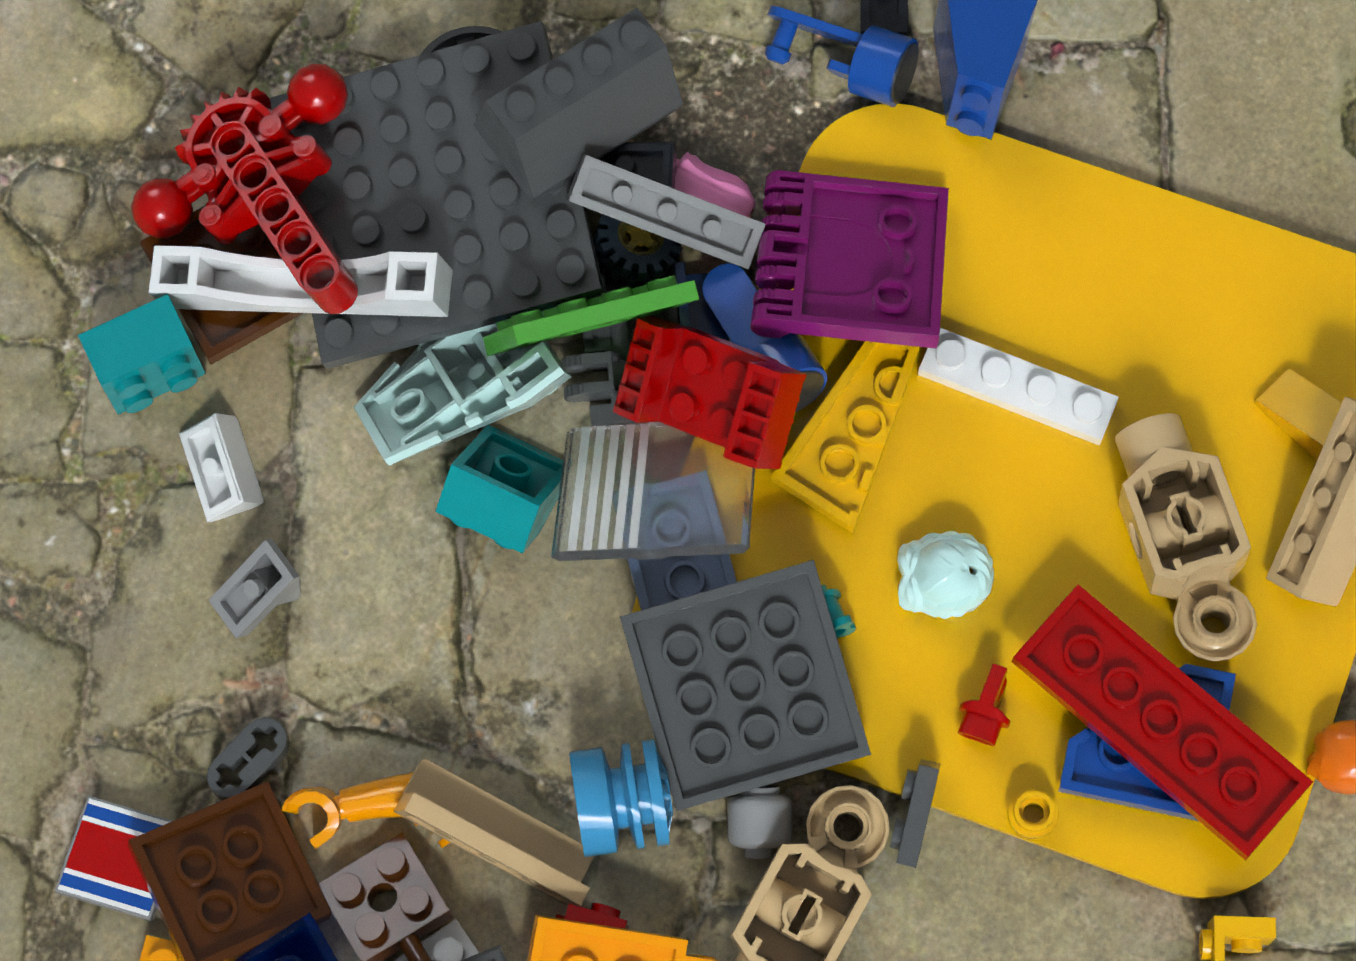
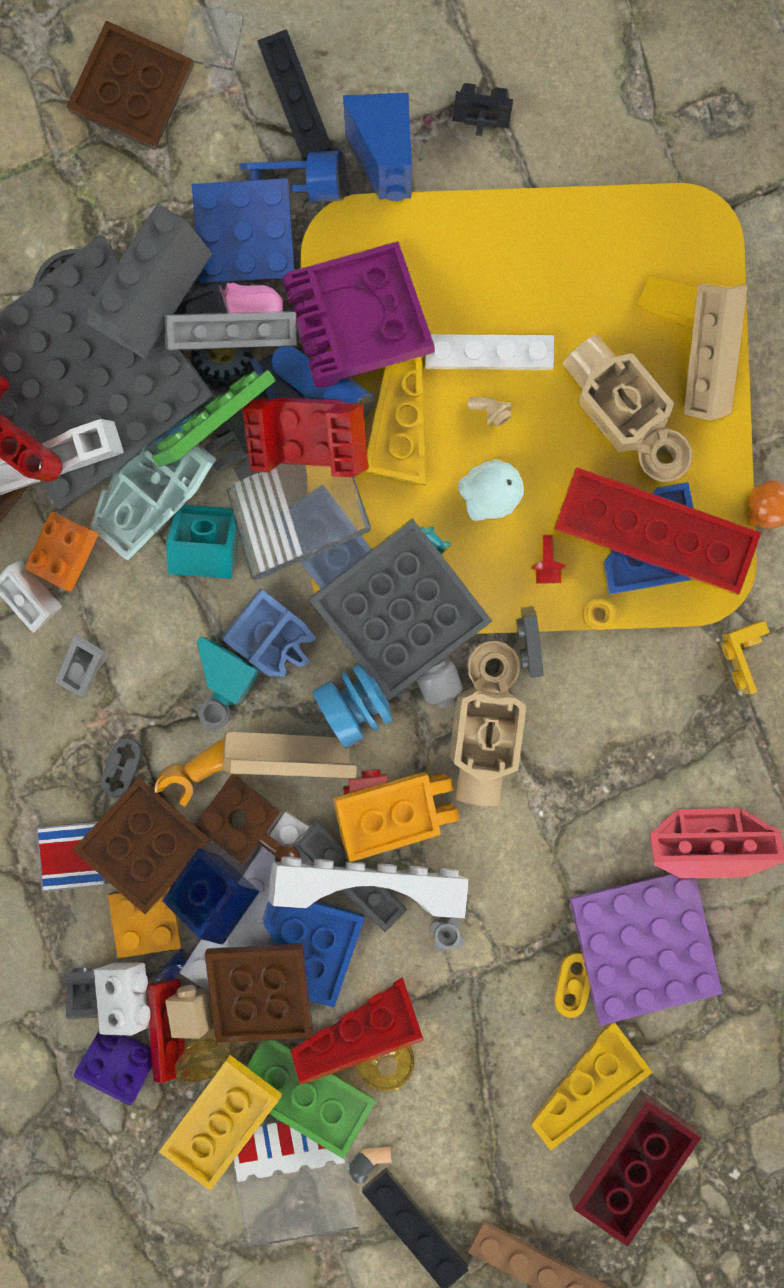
camera: 25 degrees left, 15 degrees up
(298, 422) = (61, 551): none -> orange plate
(414, 736) = (213, 714): none -> light grey plate
(460, 680) = (226, 672): none -> teal slope
(541, 655) = (268, 635): none -> medium blue plate
(741, 94) = (244, 229): none -> blue plate
(996, 470) = (498, 412): none -> tan plate
(1137, 62) = (482, 109): none -> black hips

